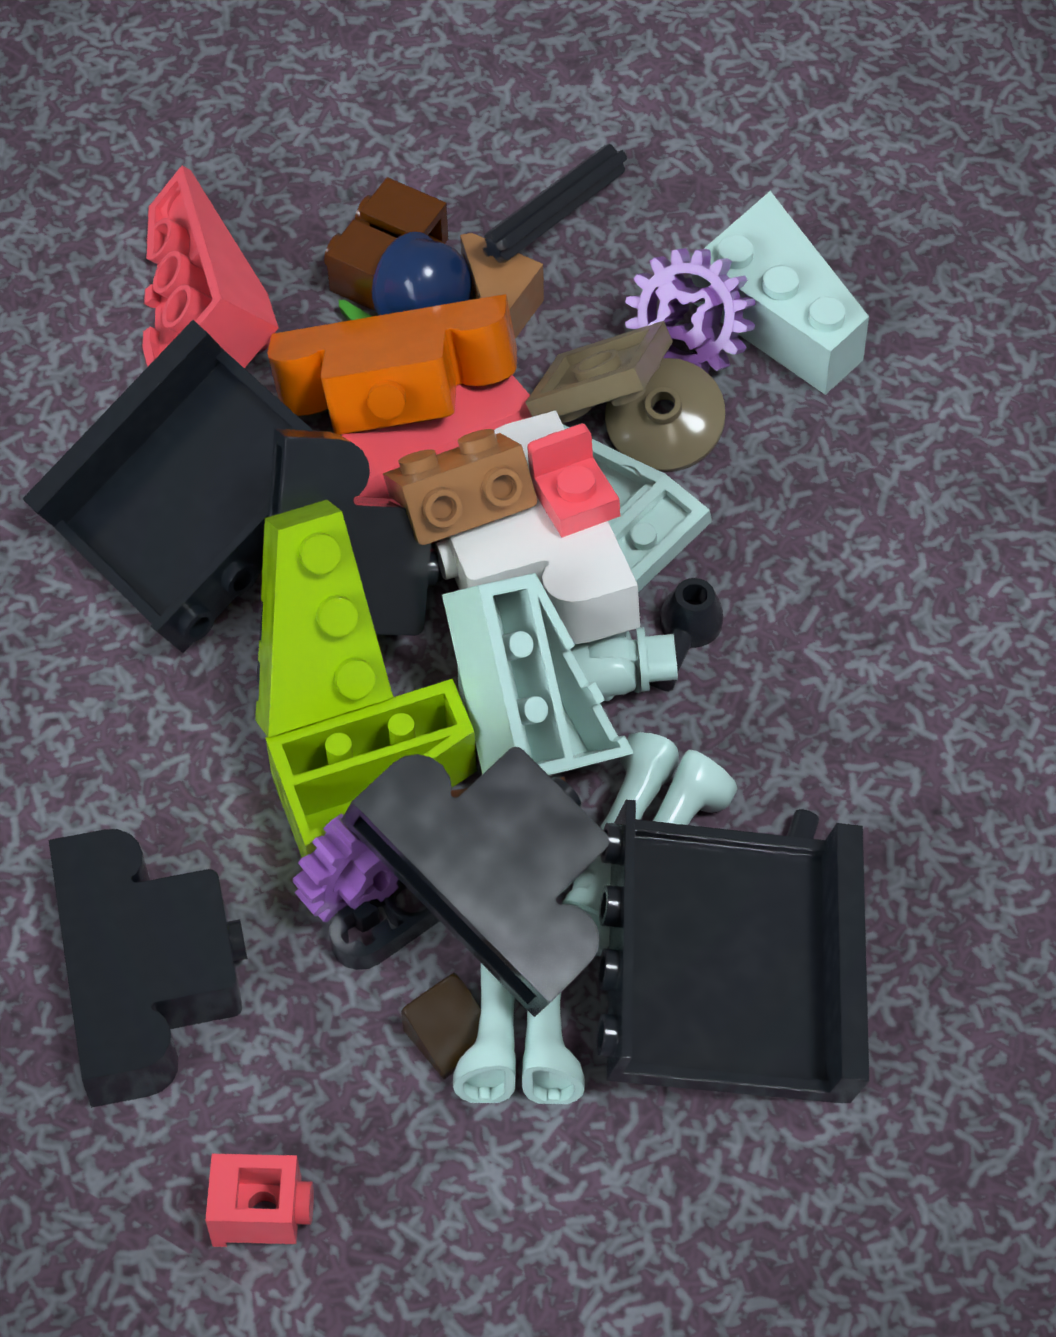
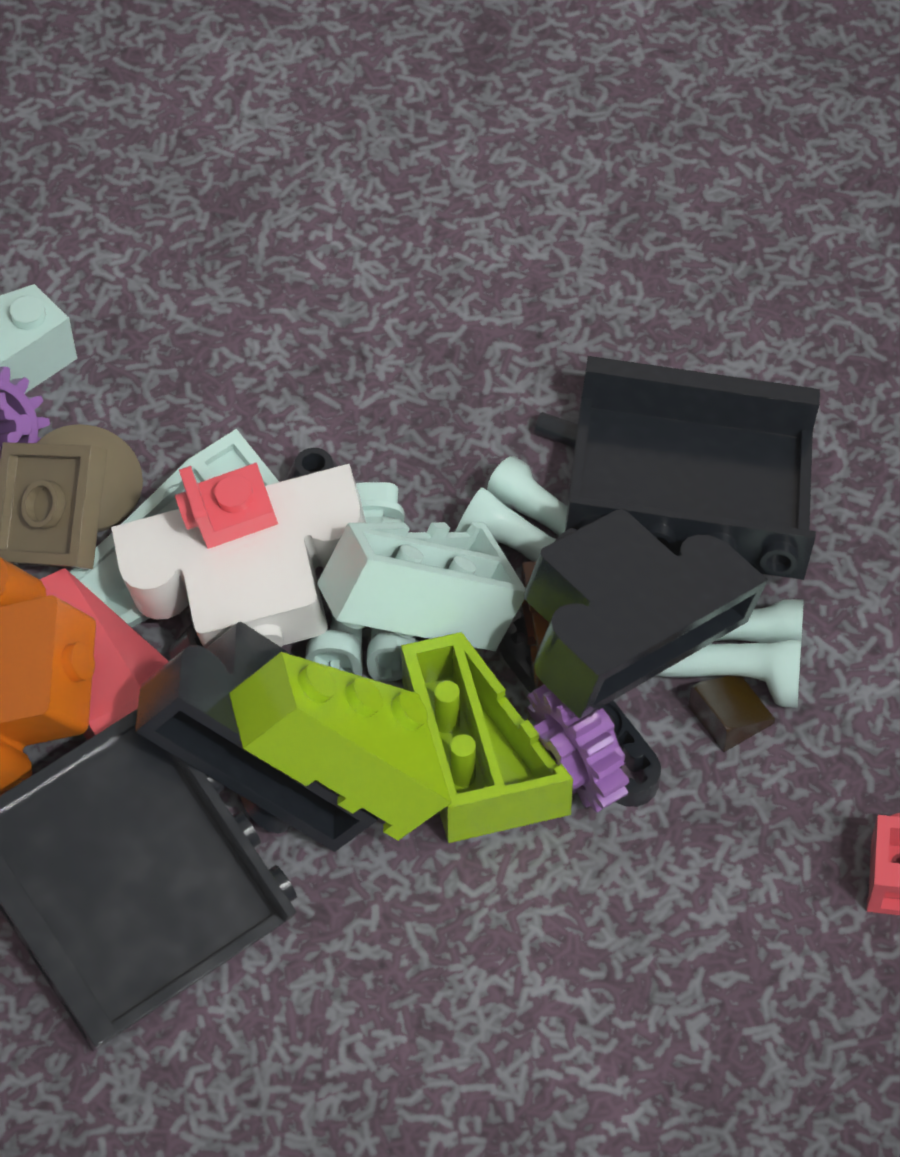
camera: 85 degrees left, 0 degrees up
(139, 960) = (652, 960): black brick -> none
(462, 486) = (206, 591): medium nougat bracket -> none

